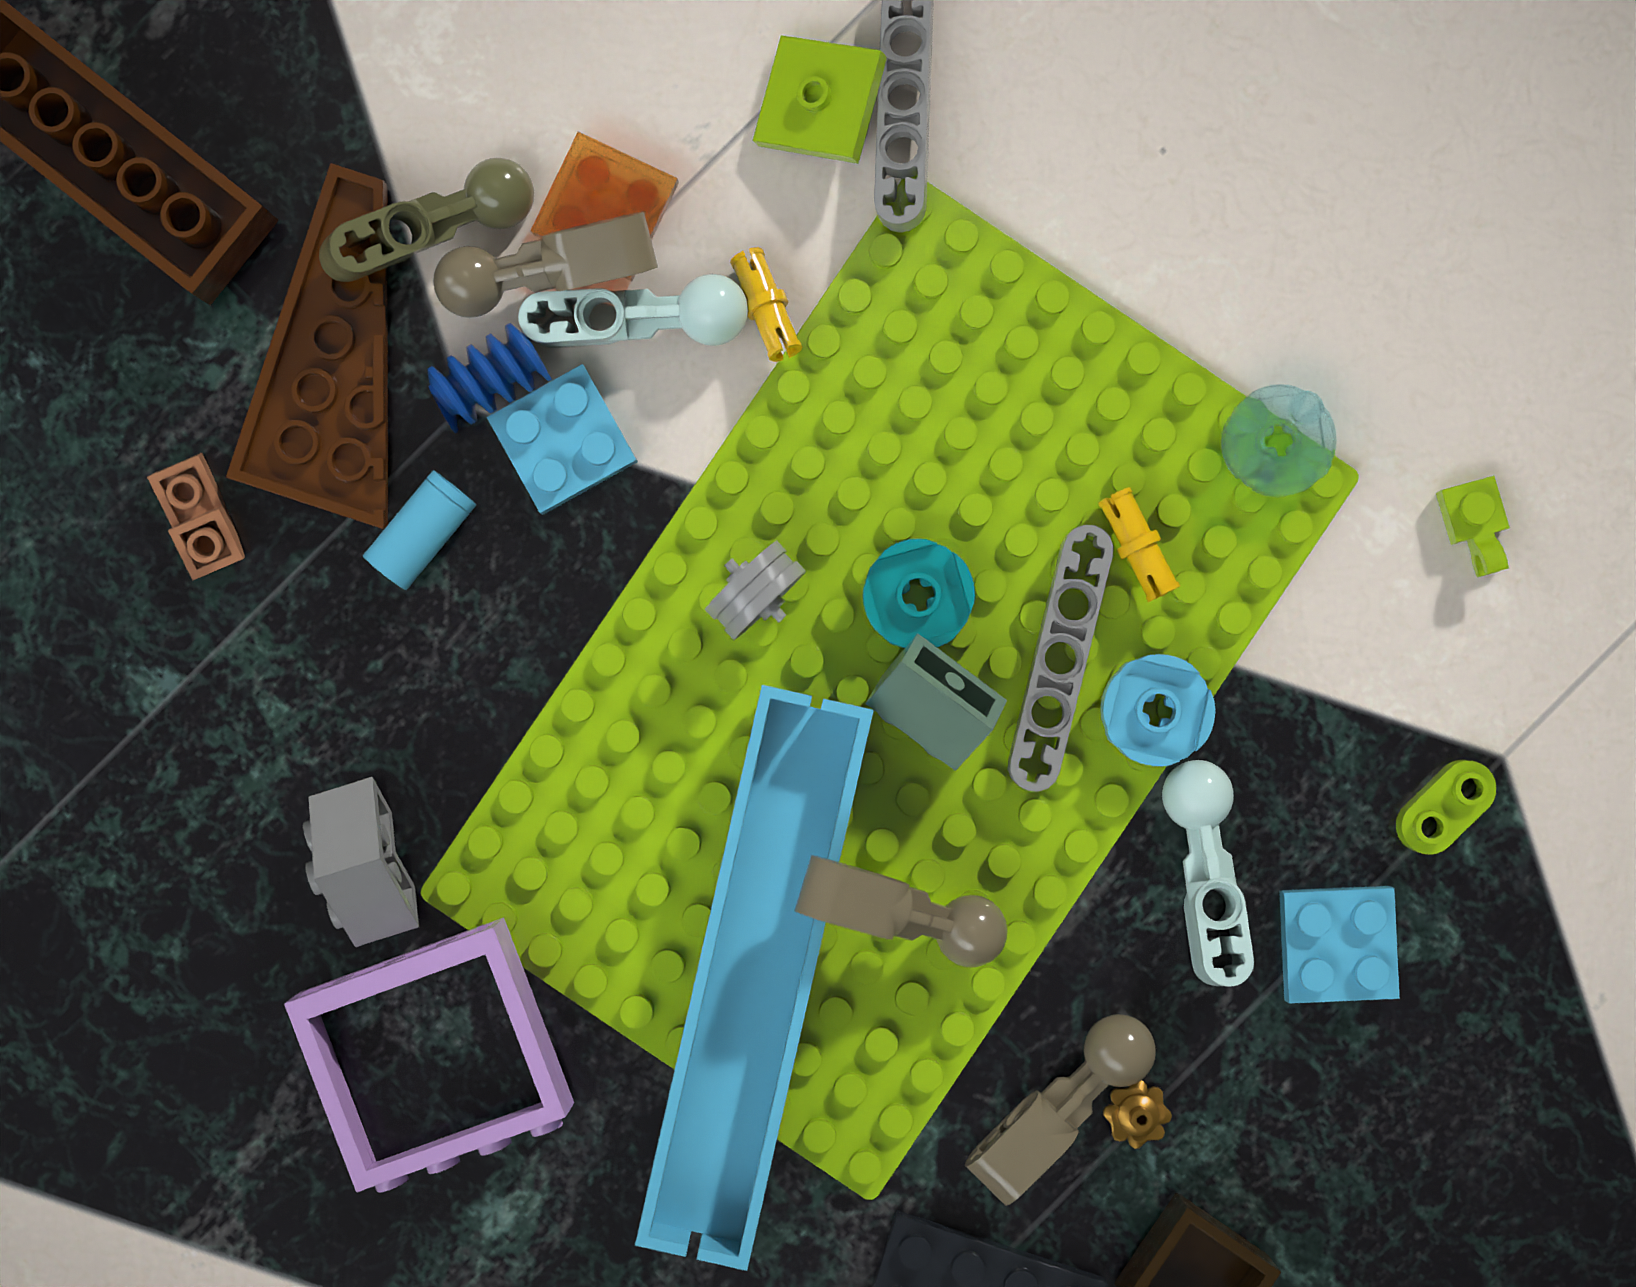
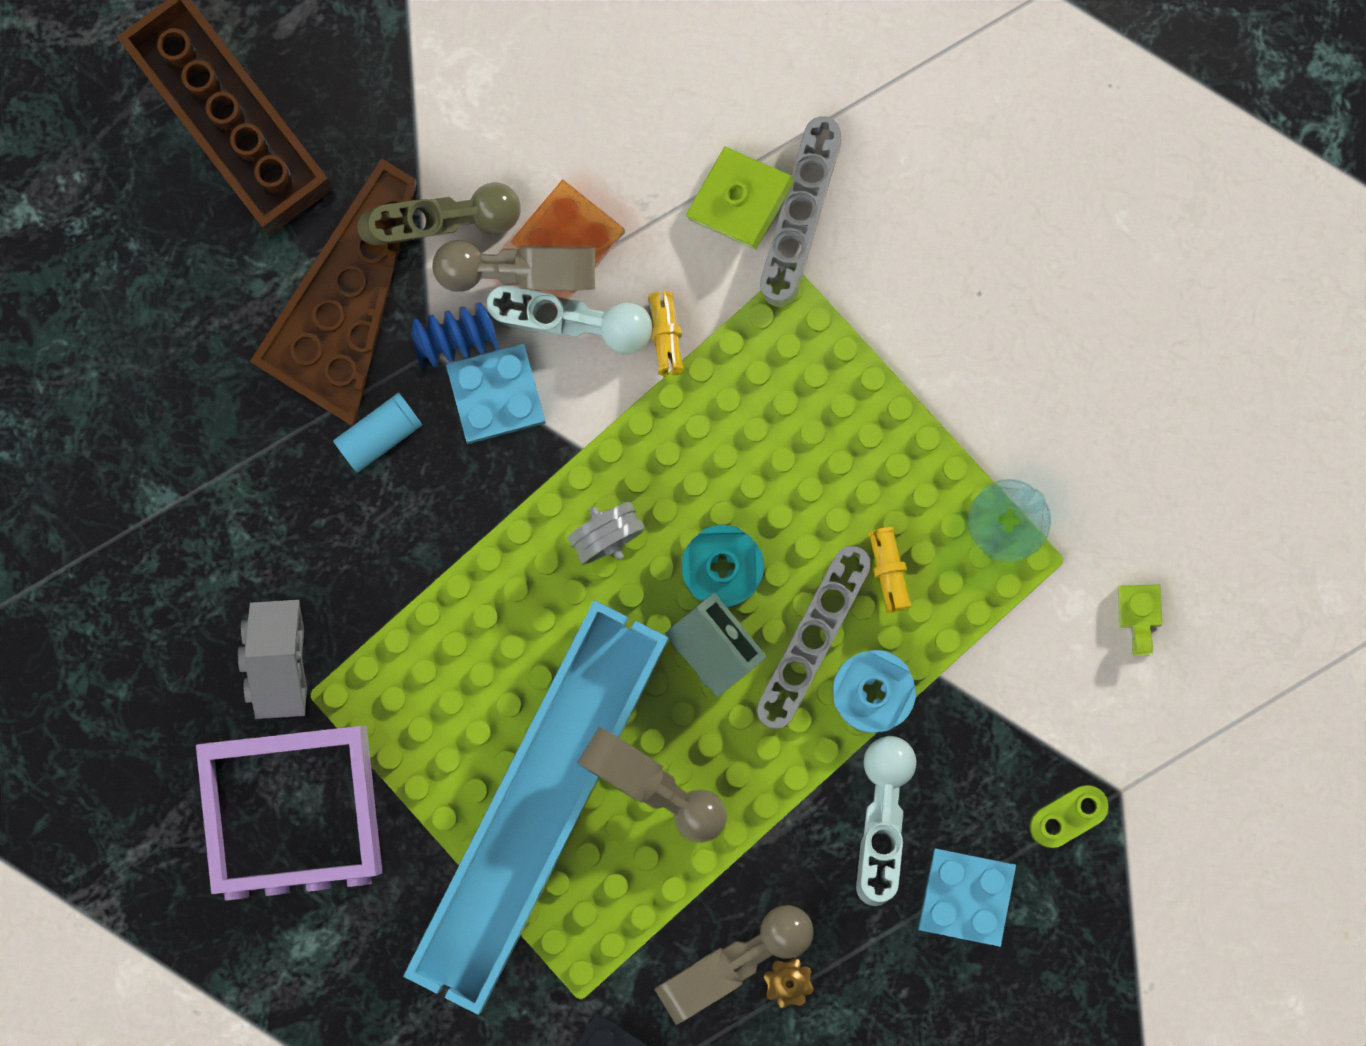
camera: 20 degrees right, 5 degrees down
(197, 516) = (220, 384): nougat slope -> none

